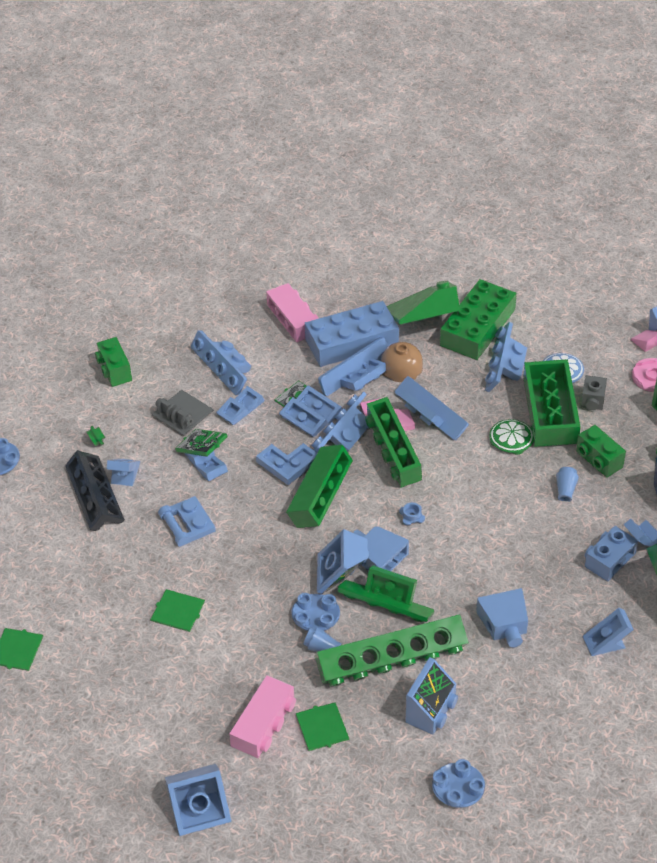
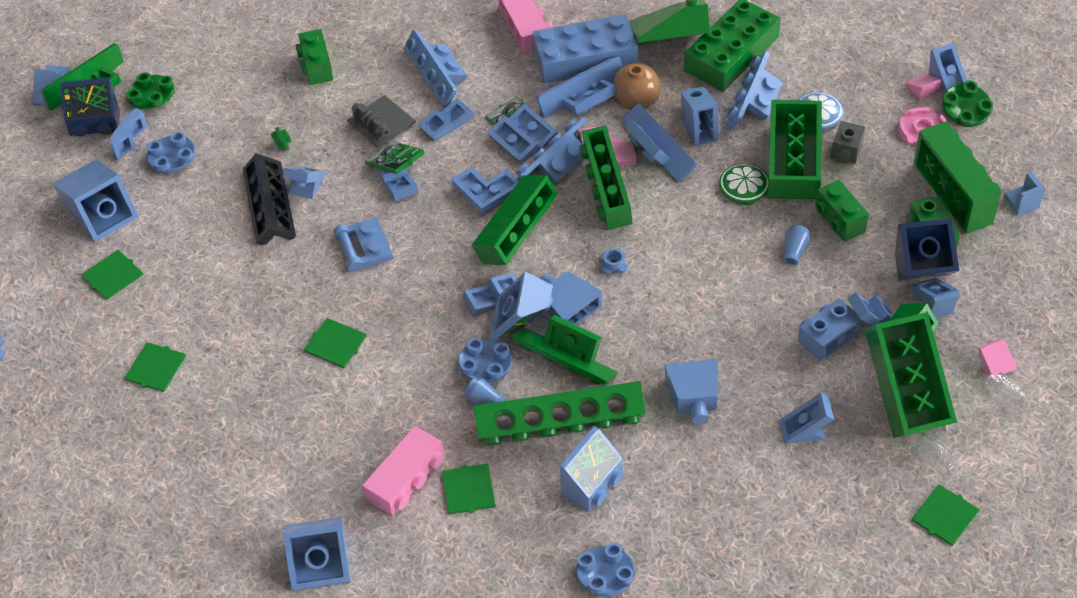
camera: 10 degrees right, 5 degrees up
(306, 557) = (485, 298): none -> medium blue slope
(463, 381) = (698, 105): none -> medium blue torso

